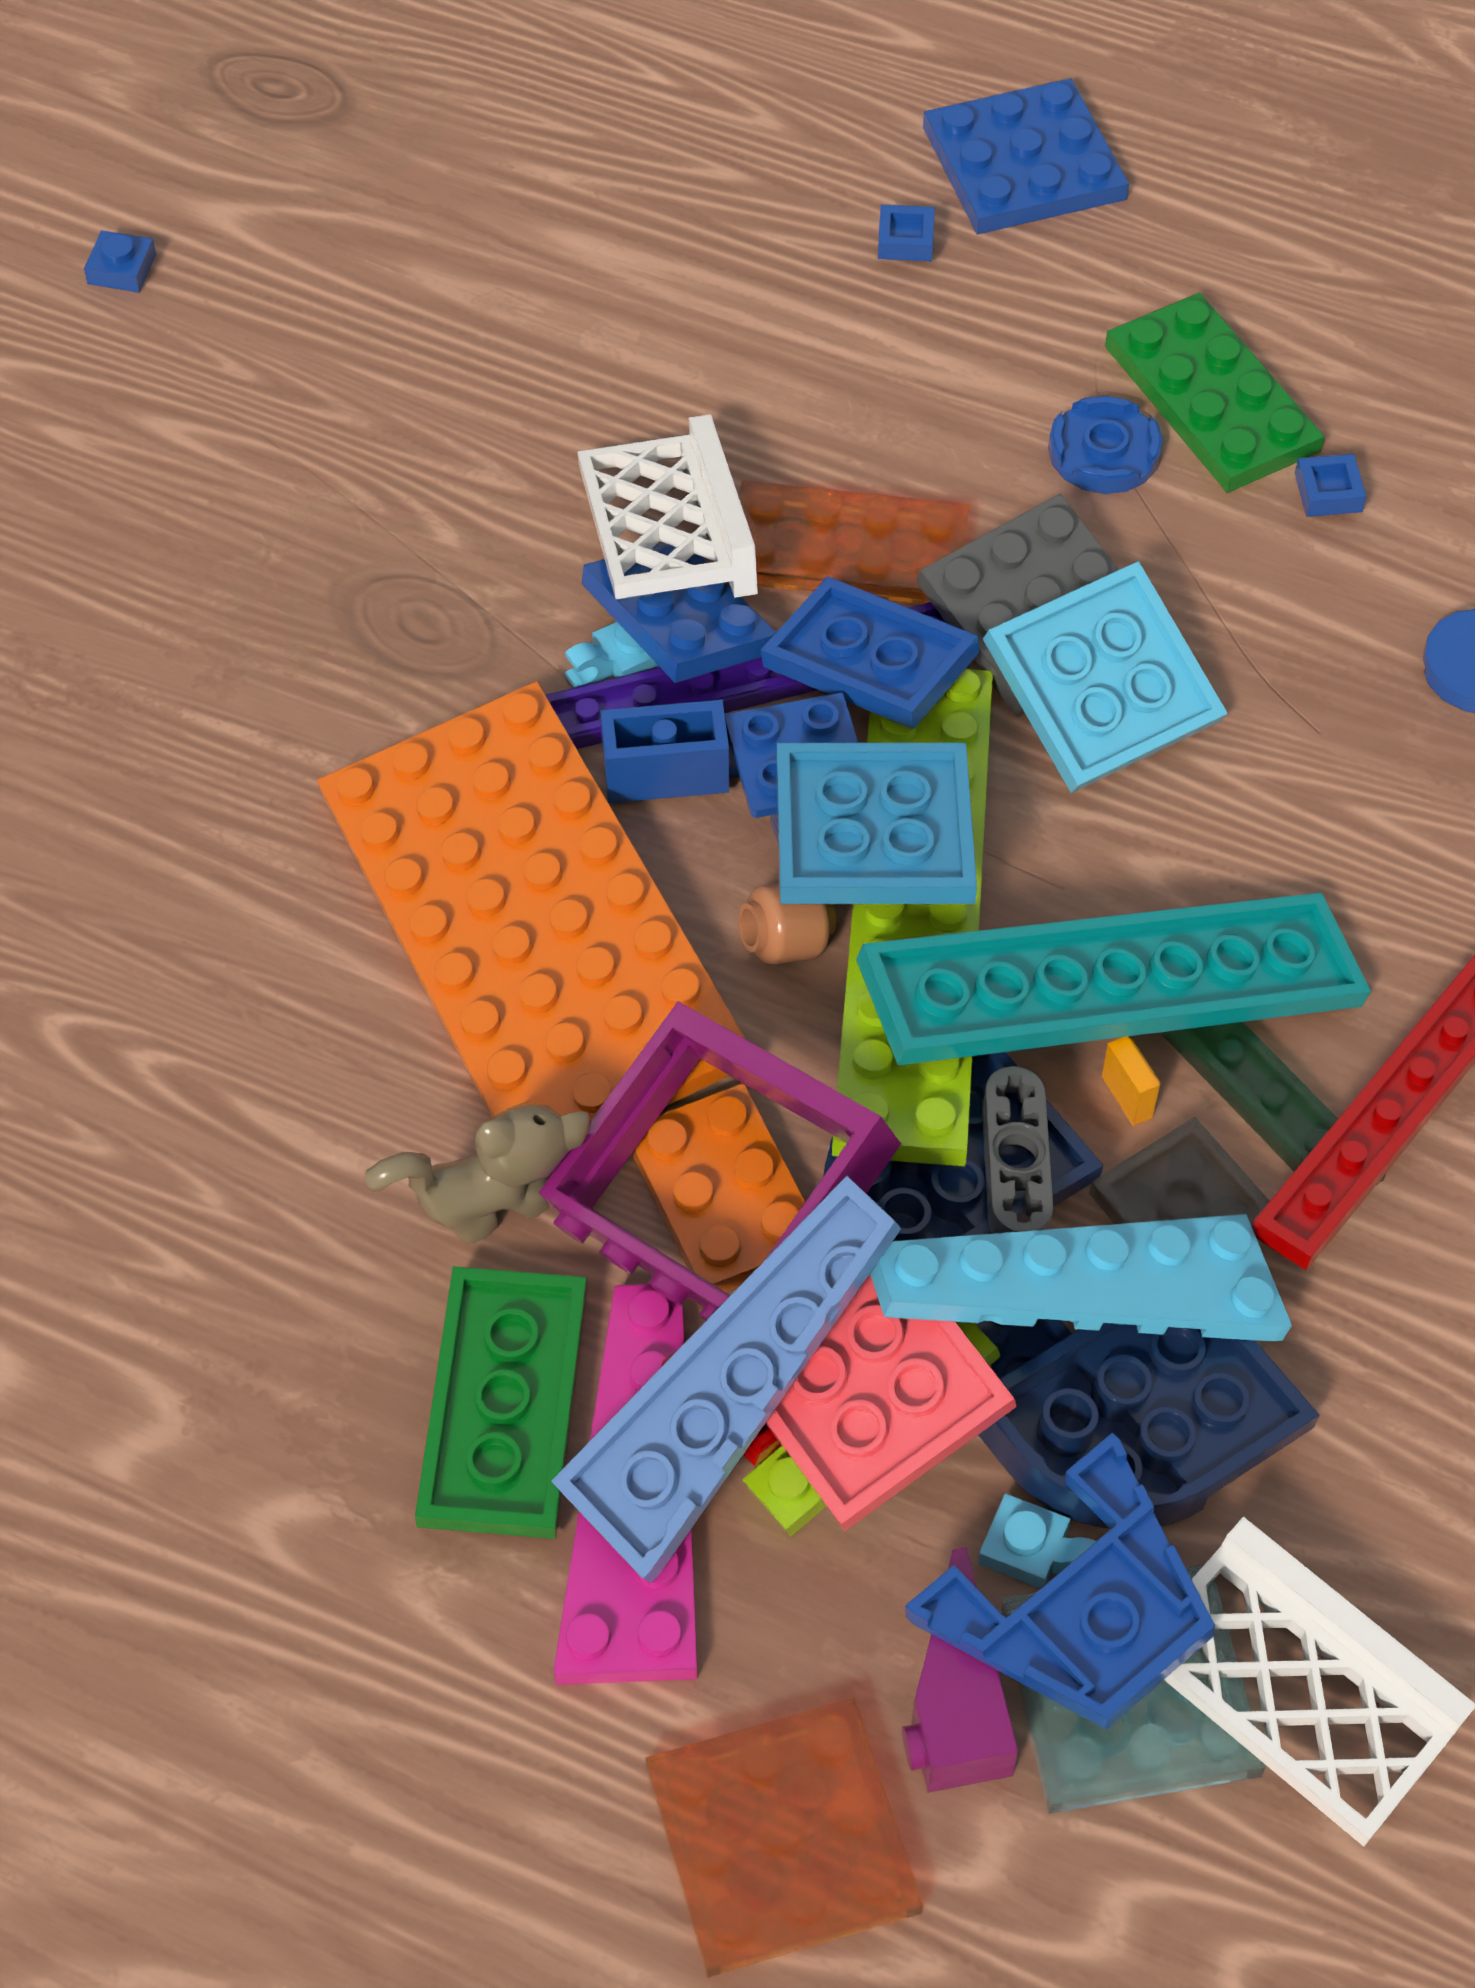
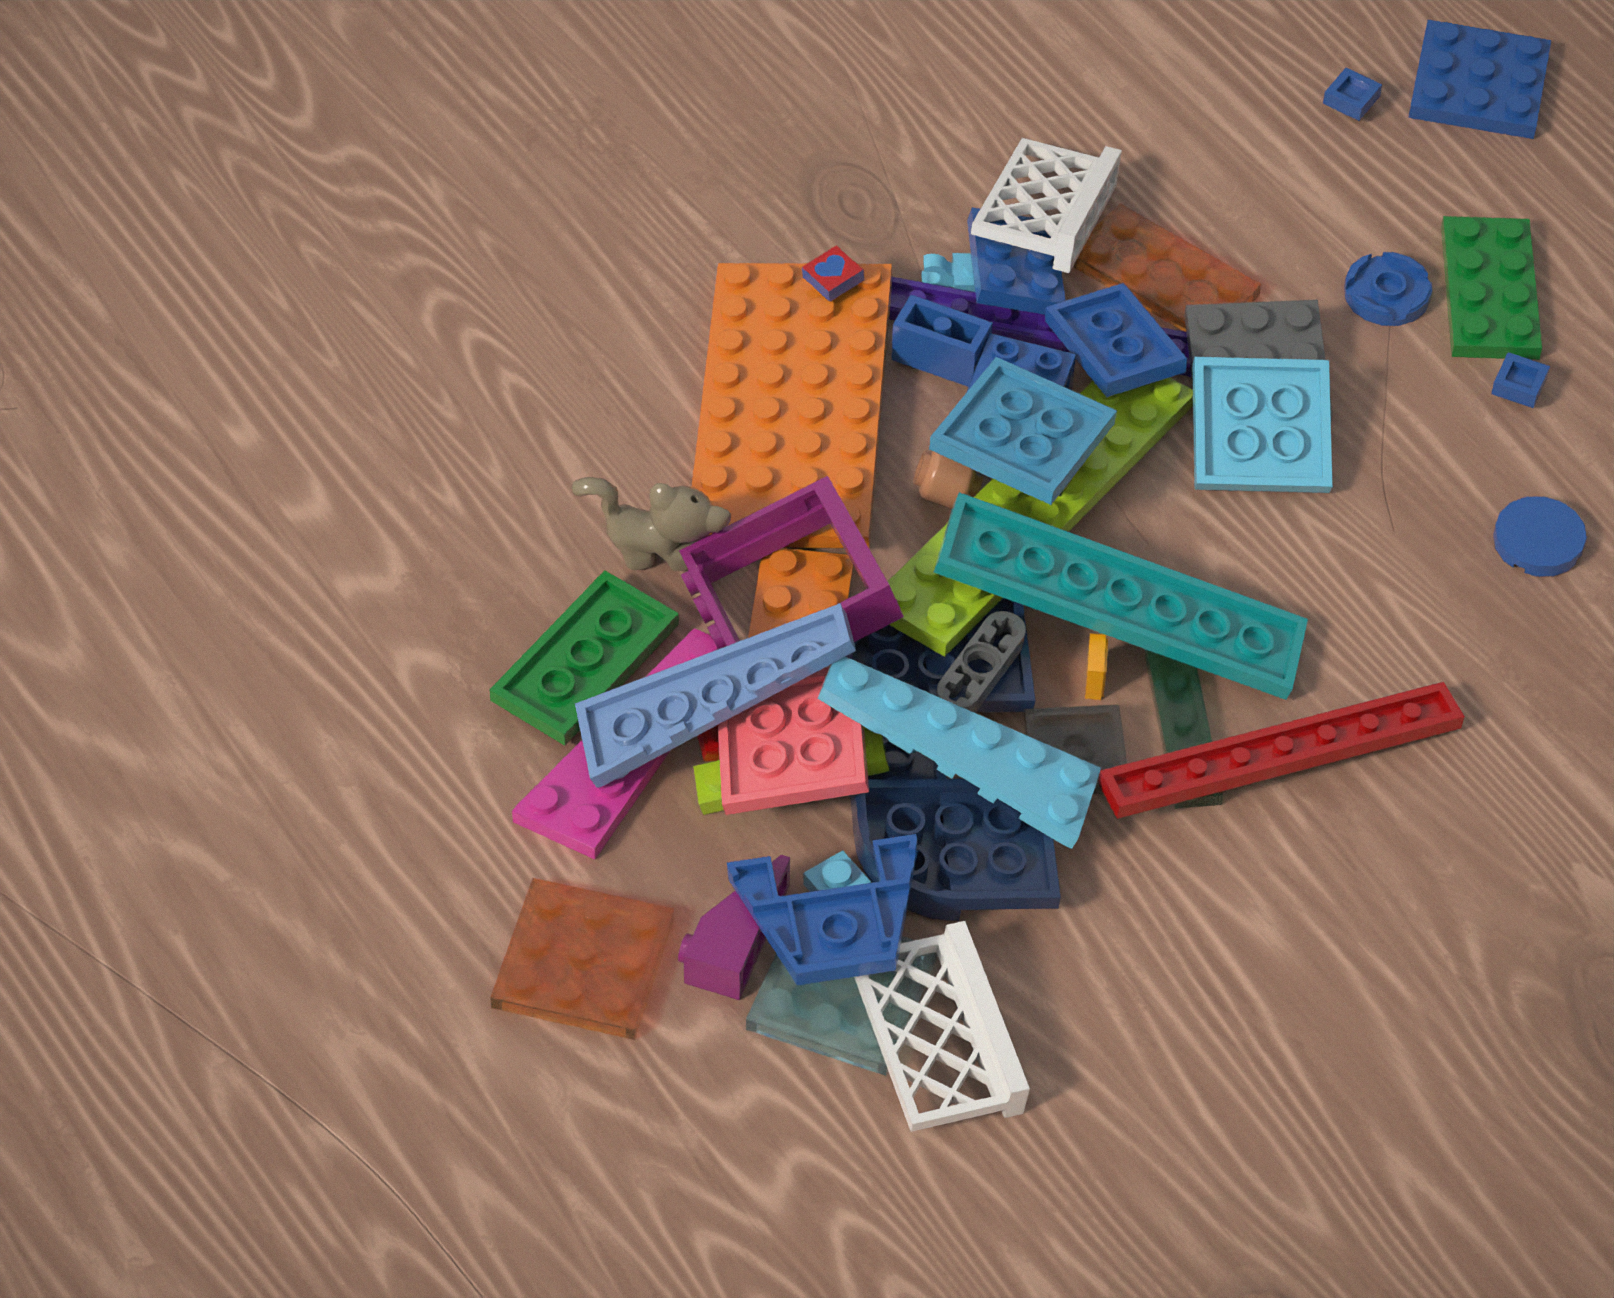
camera: 30 degrees right, 5 degrees down
(481, 727) = (833, 273): none -> tile

